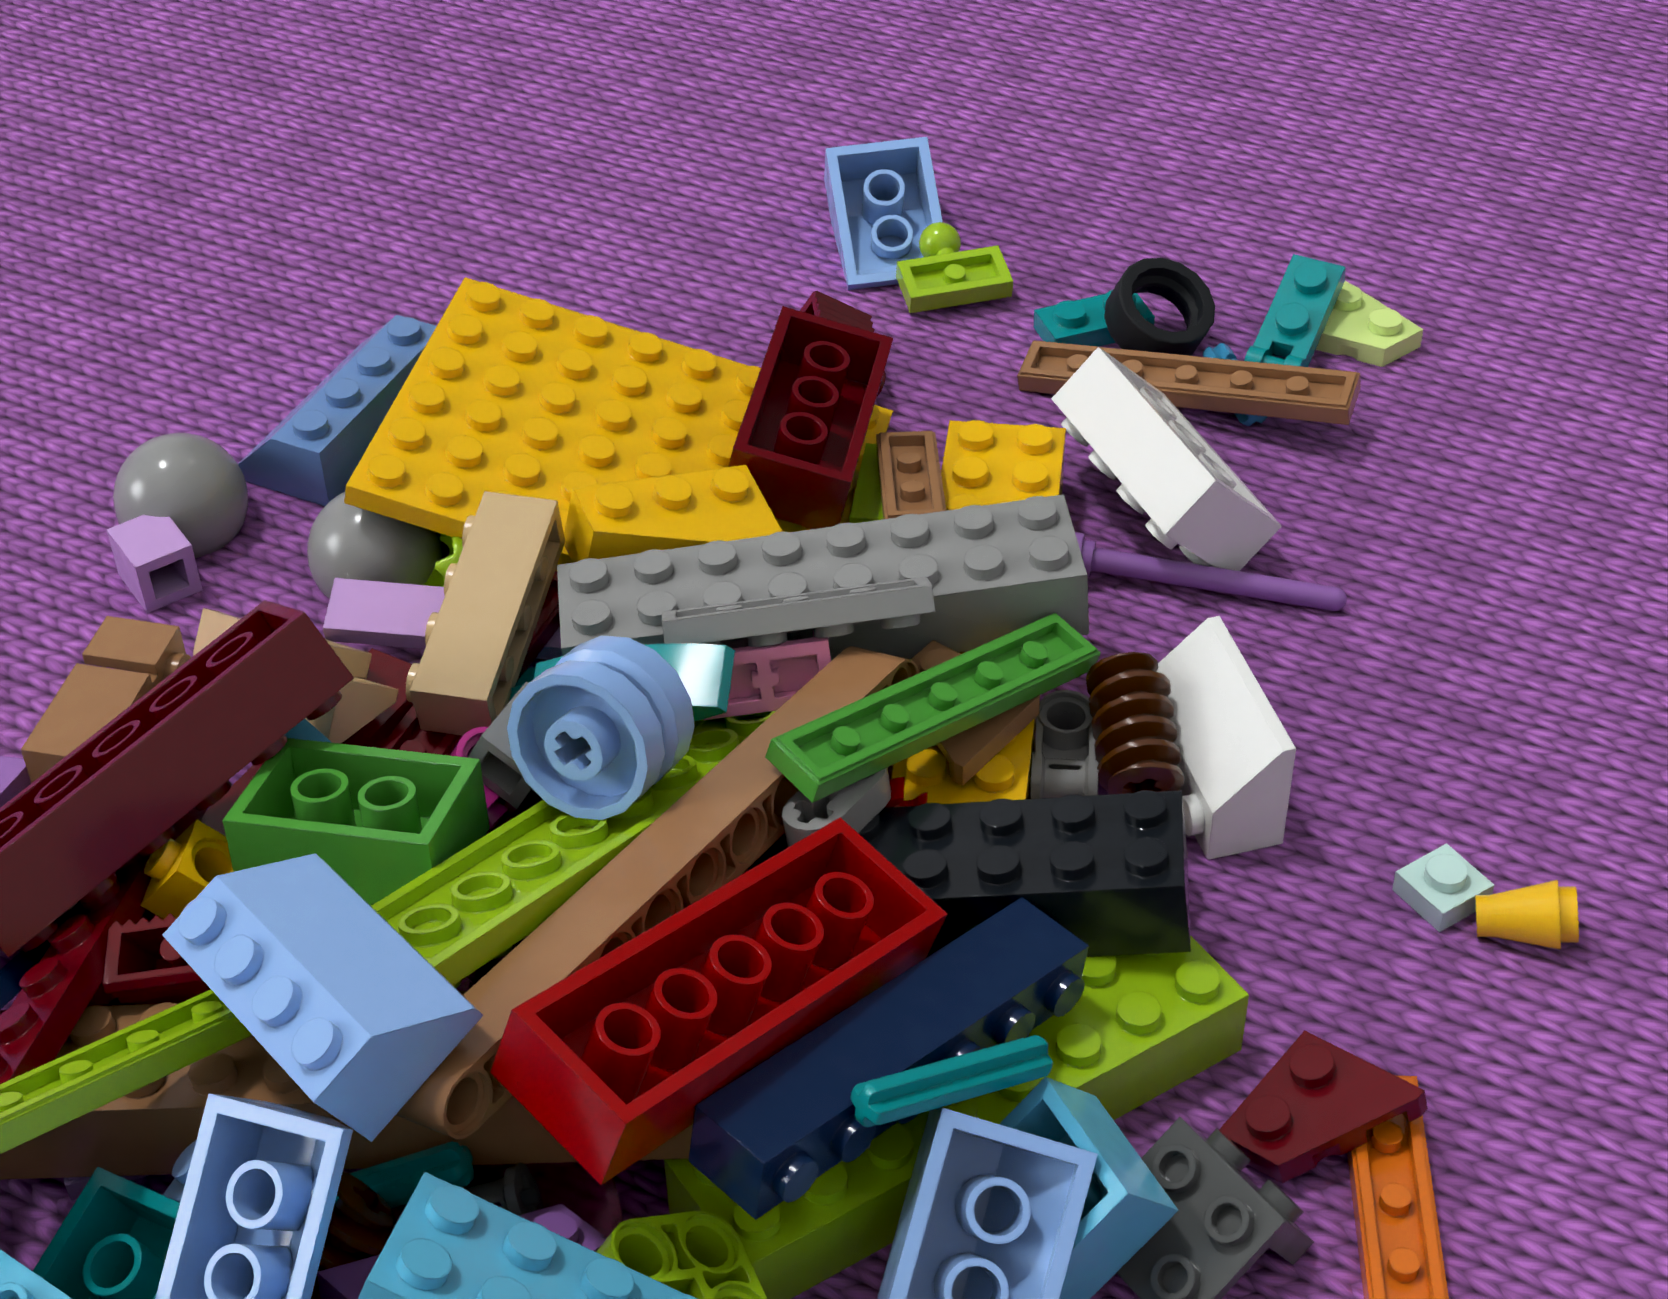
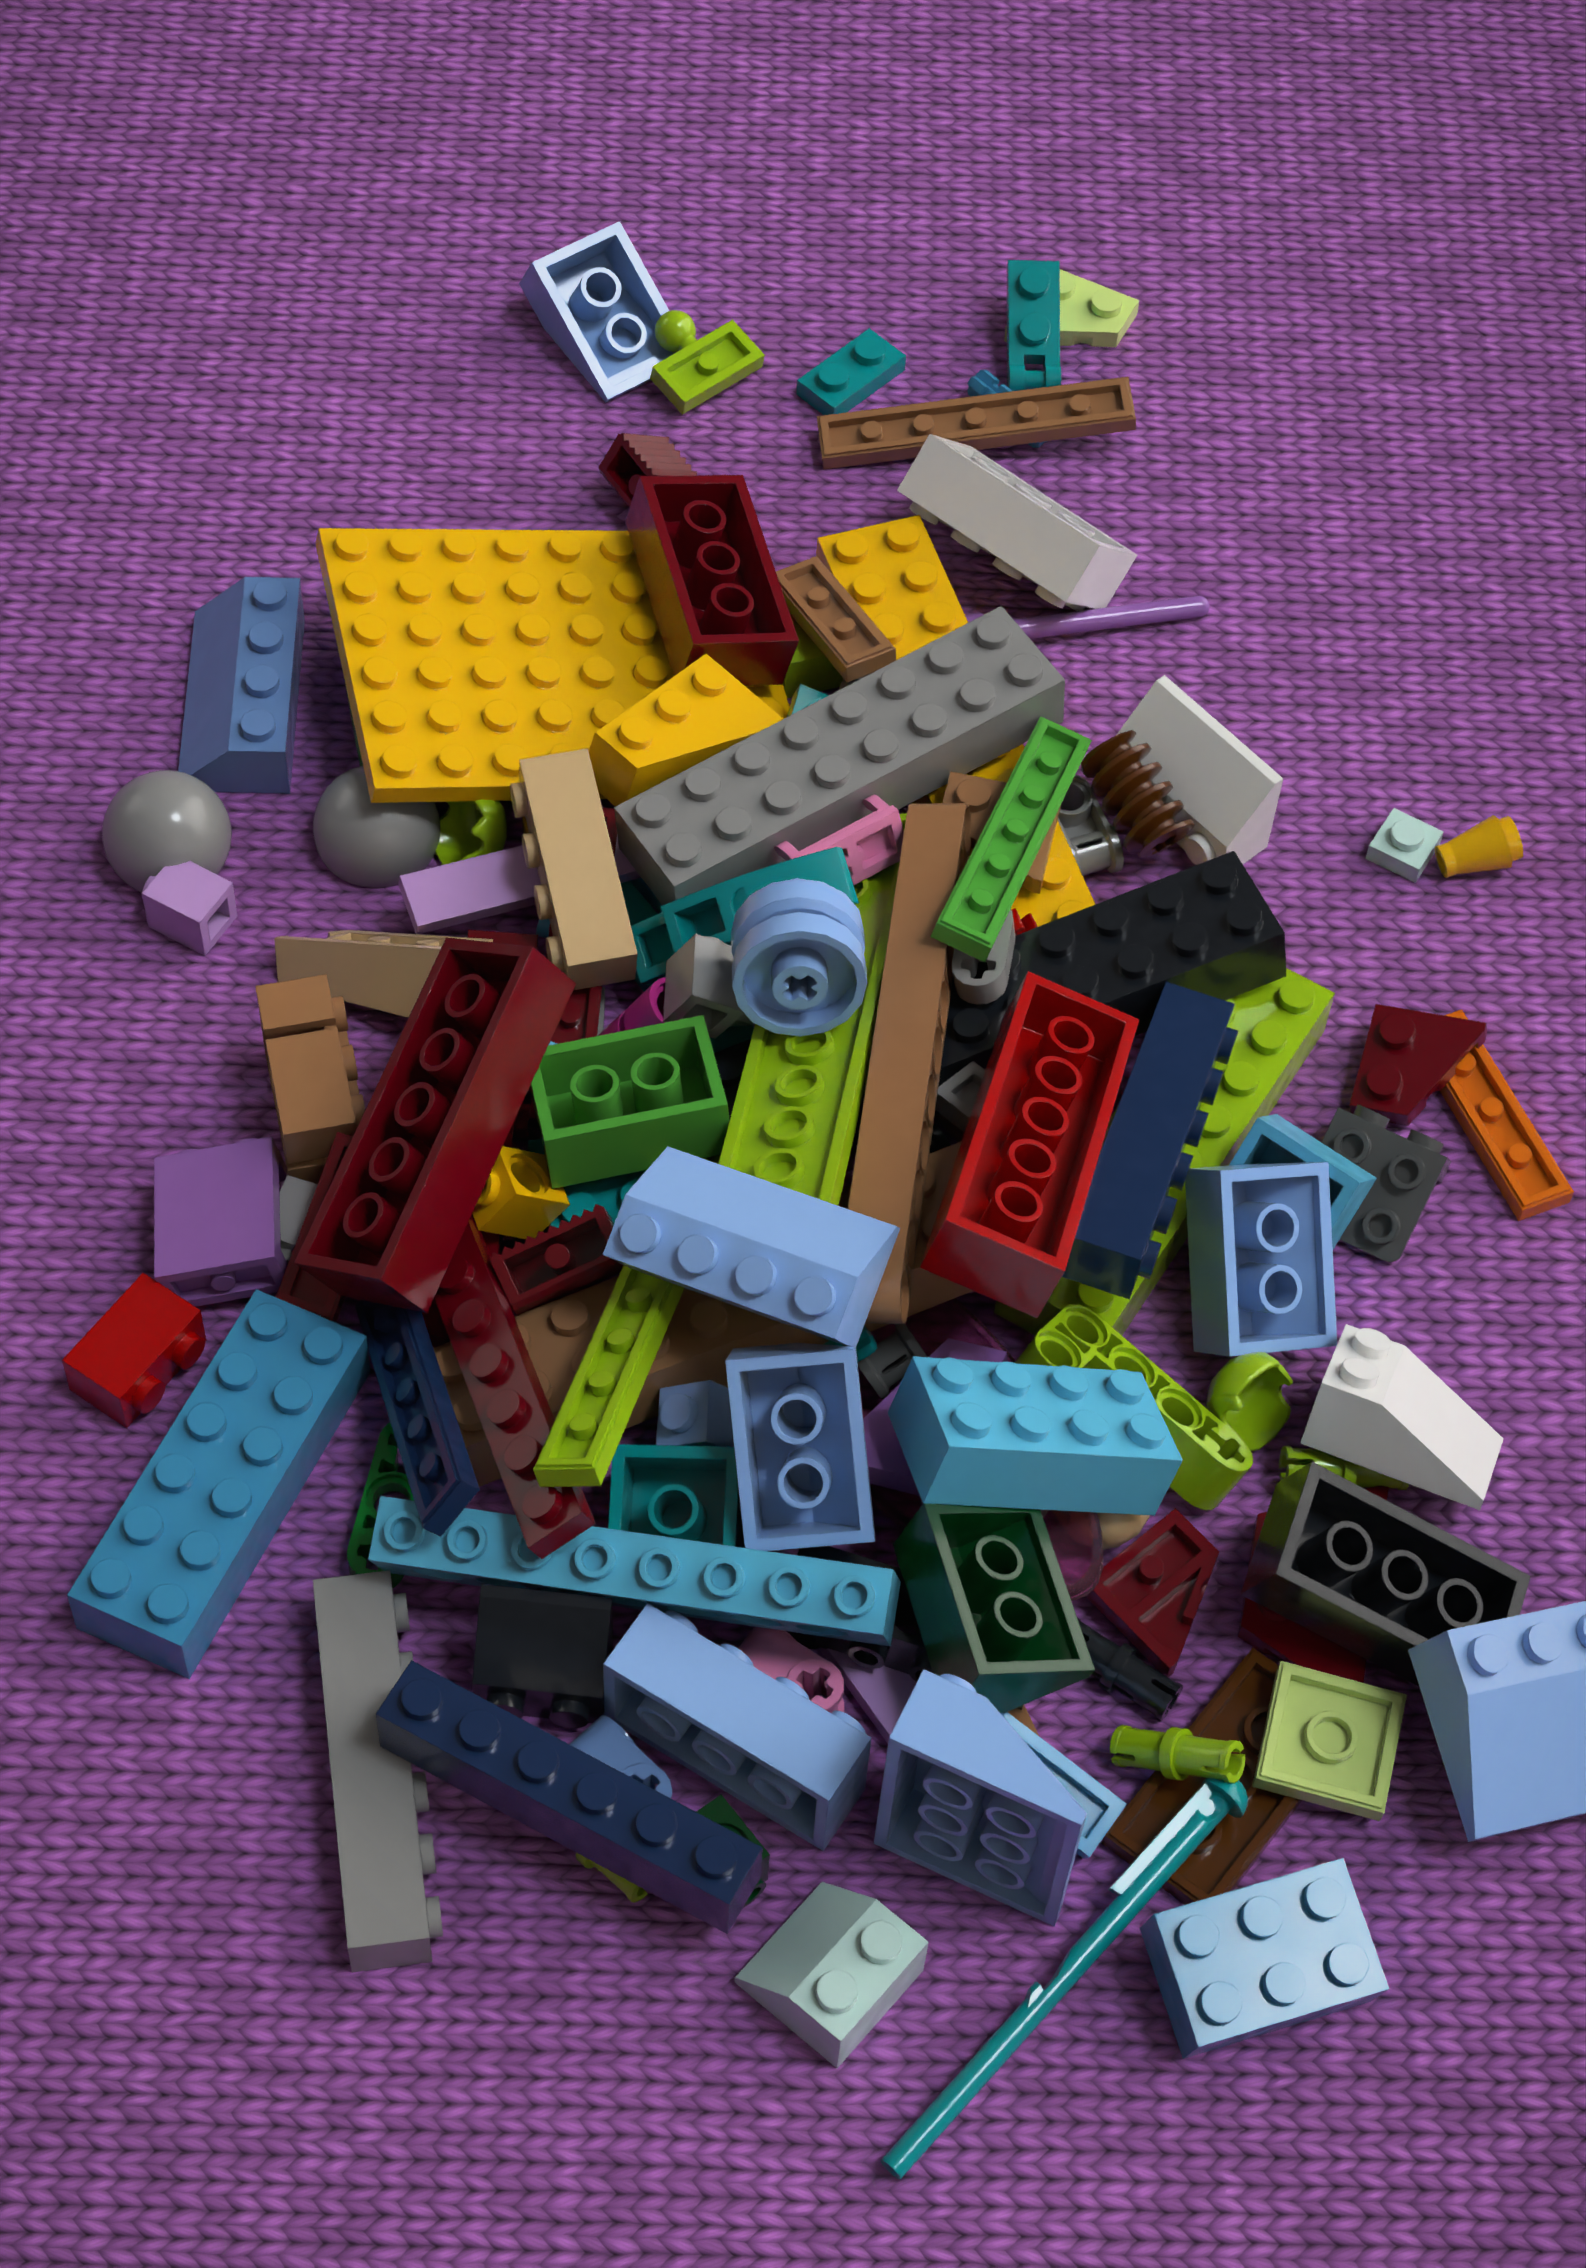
camera: 30 degrees left, 15 degrees up
(826, 611) = (875, 787): light grey plate -> none
(950, 1081) = (1213, 1147): teal axle -> none
(1176, 285) = (934, 330): black tyre -> none

